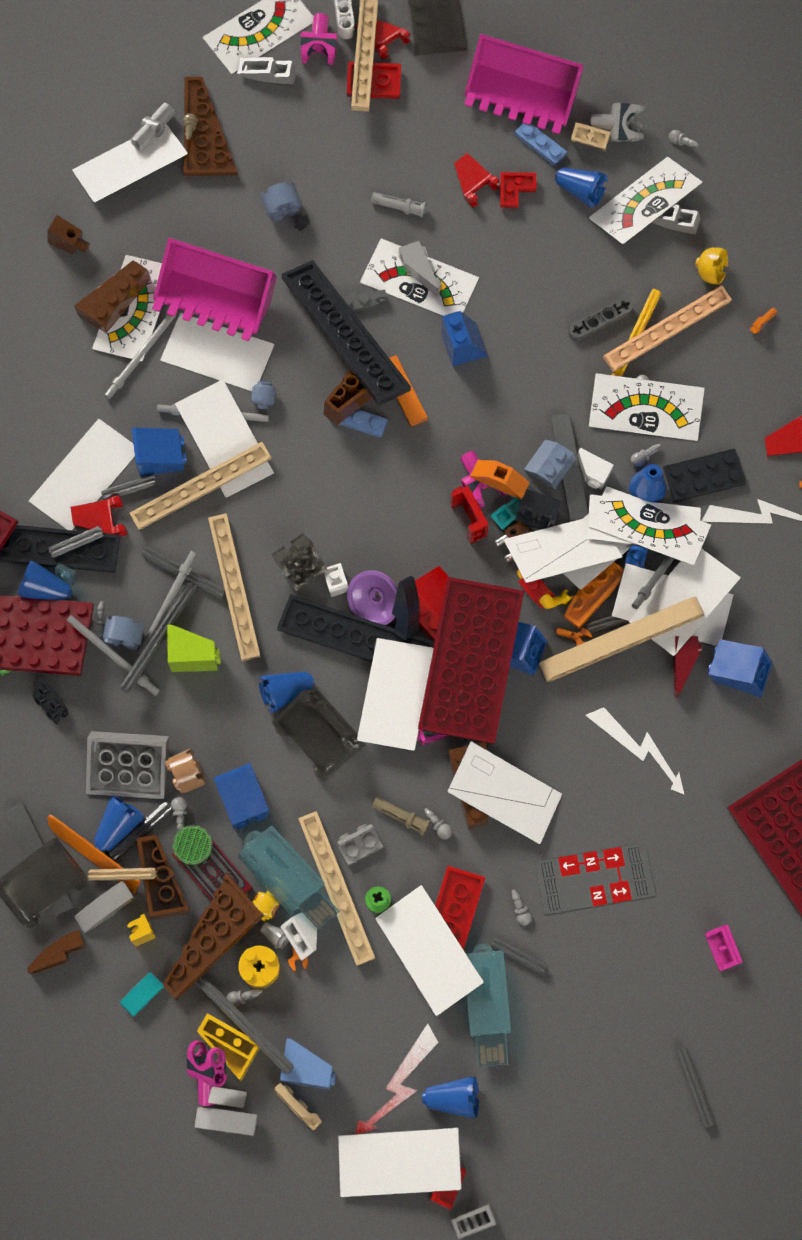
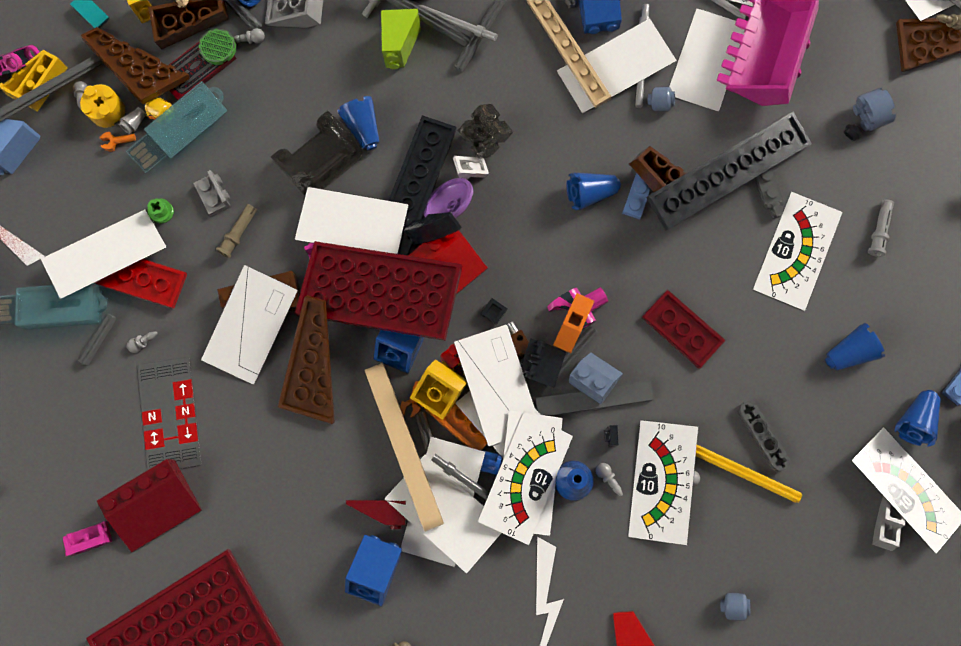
camera: 95 degrees right, 5 degrees up
(186, 771) = (284, 37): medium nougat brick -> none
(234, 587) = (465, 77): tan plate -> none
(242, 796) = (259, 86): blue slope -> none
(301, 935) = (124, 138): white slope -> none
(336, 888) = (171, 173): tan plate -> none
(360, 464) = (589, 188): none -> blue cone
(409, 401) = (661, 239): orange tile -> none
(416, 265) = (816, 243): light grey slope -> none
(444, 830) = (220, 270): light grey bar -> none
(462, 338) = (731, 289): blue slope -> none
(473, 177) = (919, 304): red flag -> none
(479, 526) = (538, 298): red panel -> none
(485, 558) = (494, 311): none -> black plate
(499, 385) = (683, 329): none -> dark red tile
(506, 514) = (539, 331): teal slope -> none
(512, 183) = (917, 346): red plate -> none
(519, 234) = (855, 349): none -> blue cone
(556, 731) = (308, 374): none -> reddish brown wing
(569, 601) = (438, 389): none -> yellow brick
(594, 469) = (590, 423): white slope -> none
(605, 450) = (611, 435): none -> black plate
(613, 728) = (318, 436): white sticker -> none
(667, 328) = (756, 508): light nougat tile -> none
(687, 886) = (149, 504): none -> dark red slope
(704, 475) = (588, 542): black plate -> none
(711, 265) = (834, 560): yellow cylinder -> none
(756, 349) = (735, 606): none -> sand blue head
(759, 323) = (765, 610): orange bar -> none

